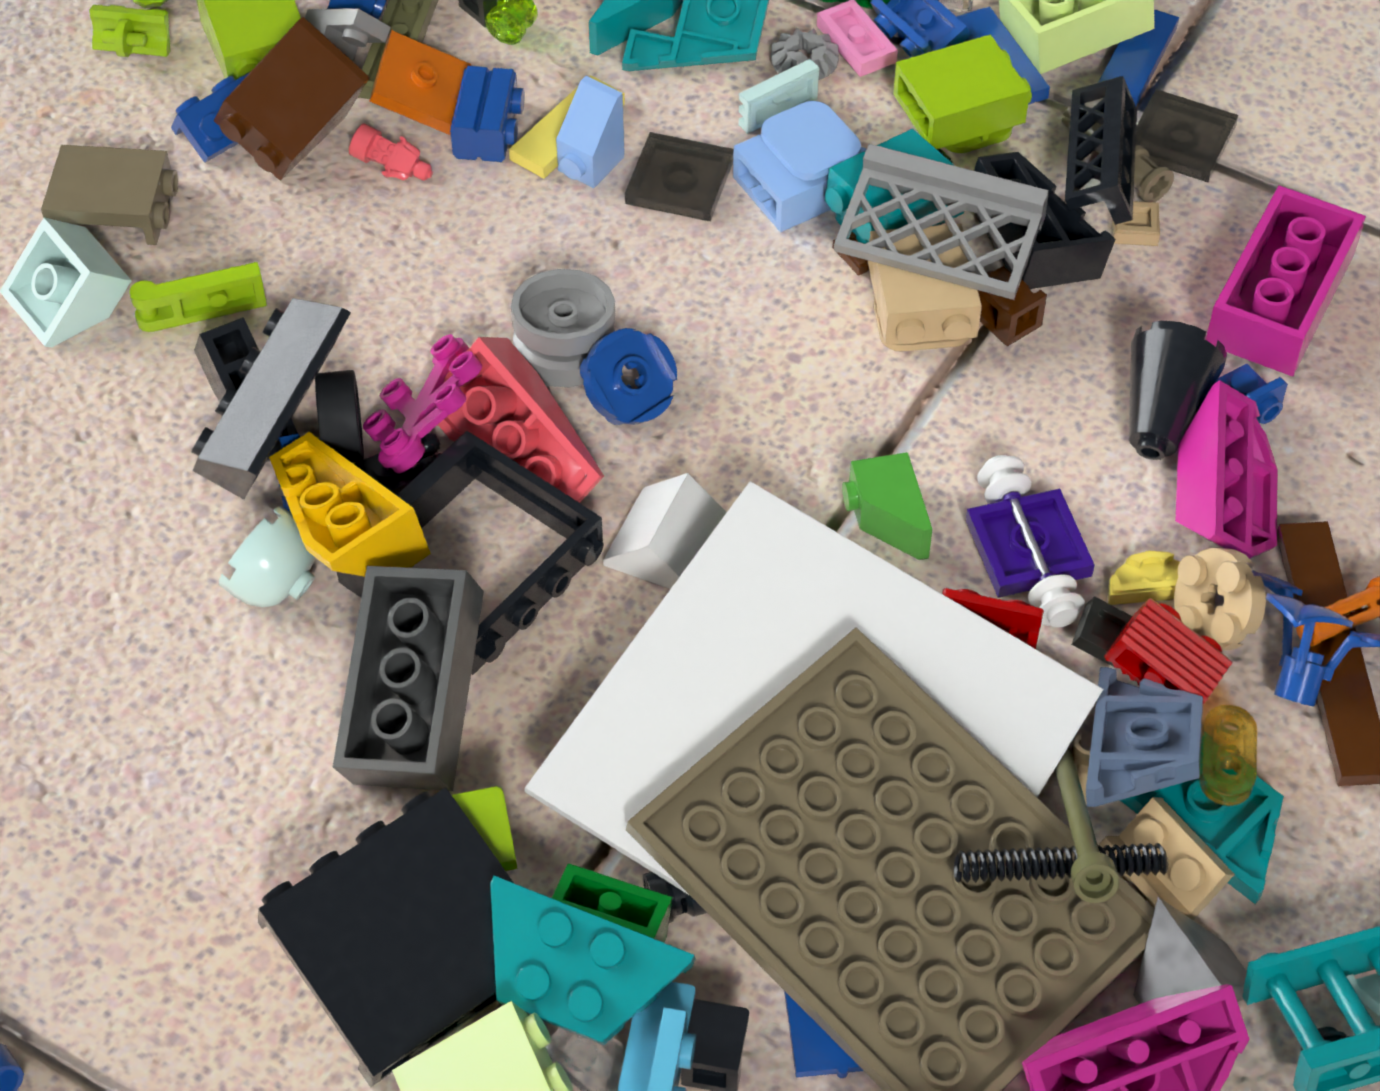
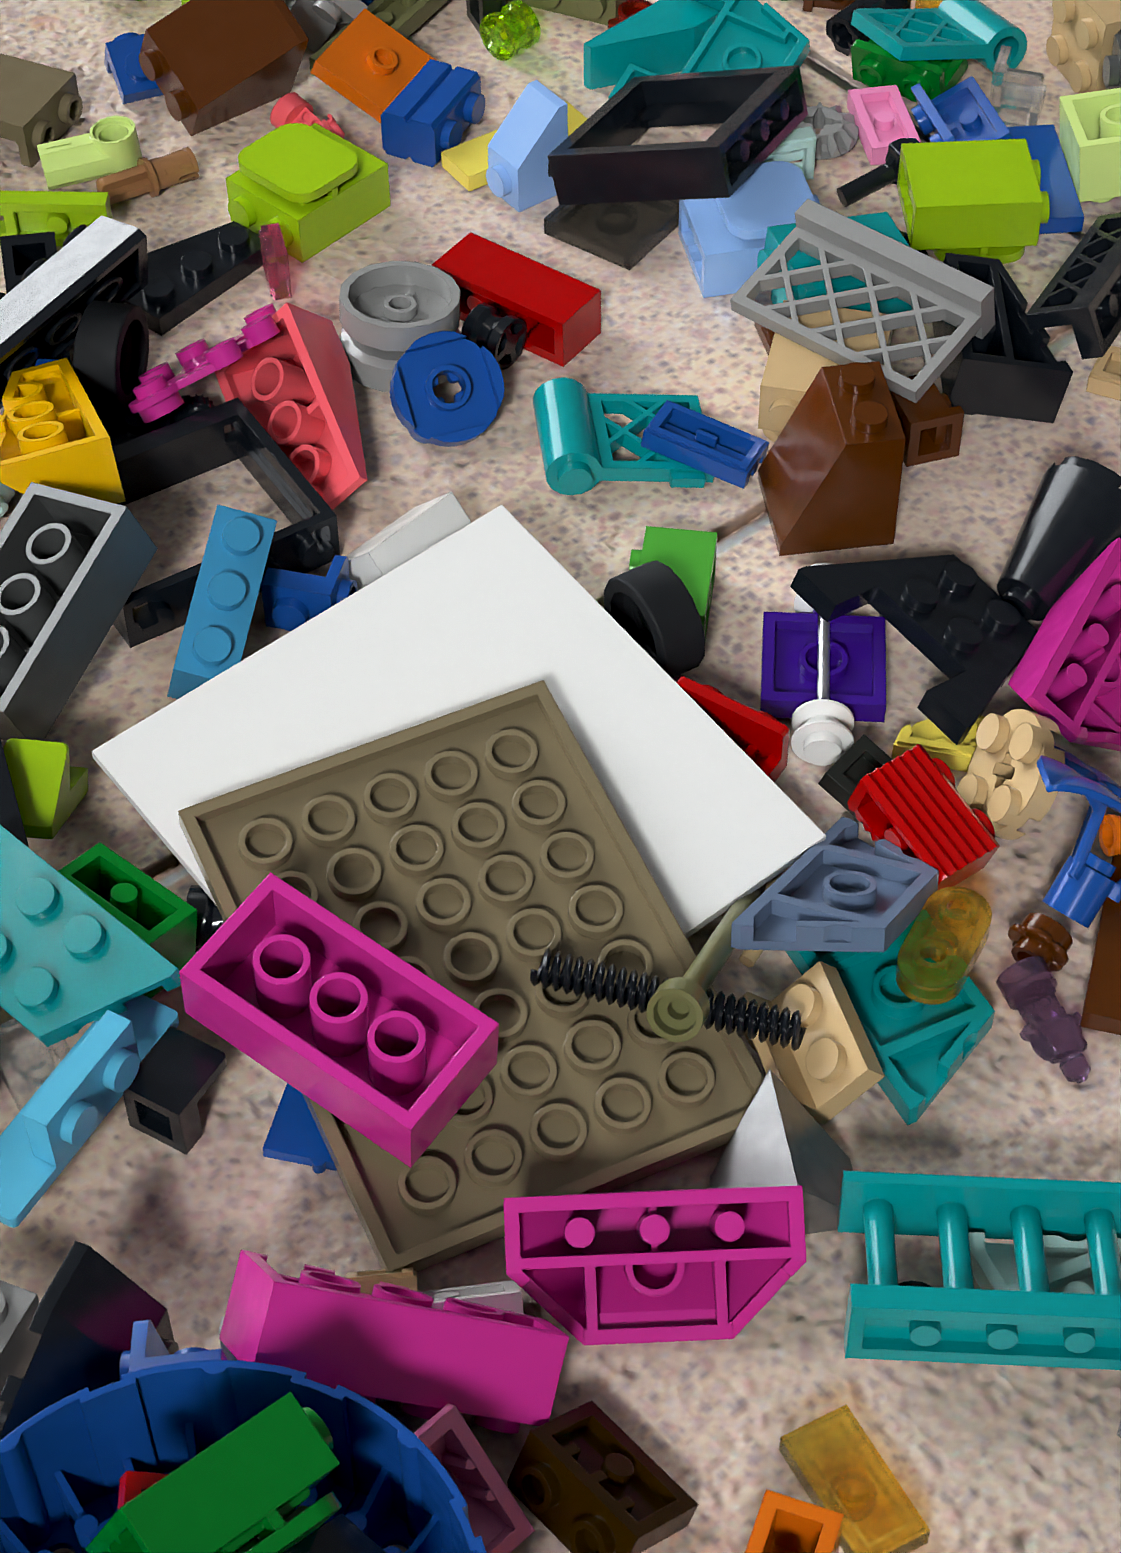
camera: 20 degrees right, 5 degrees down
(226, 219) = (89, 156): none -> yellowish green piece
(270, 232) = (150, 176): none -> medium nougat axle
(371, 296) = (195, 273): none -> black wing
(416, 214) = (308, 185): none -> lime brick
(424, 289) = (275, 261): none -> clear pink tile
(555, 627) = (222, 598): none -> dark azure brick
(606, 598) = (297, 597): none -> blue bracket
(638, 312) = (498, 334): none -> black wheel
(646, 273) = (557, 308): none -> red brick
(721, 137) = (753, 104): none -> black window
(750, 392) = (580, 440): none -> teal piece
(842, 959) = (340, 1018): none -> dark pink brick
(852, 371) = (704, 444): none -> blue tile
(880, 84) = (876, 178): none -> black bar
(907, 528) = (658, 615): none -> black tyre
(971, 367) = (836, 465): none -> reddish brown slope
(1109, 477) = (940, 611): none -> black wing
(1287, 730) = (1041, 937): none -> reddish brown plate
(1323, 796) = (1051, 1032): none -> clear purple piece

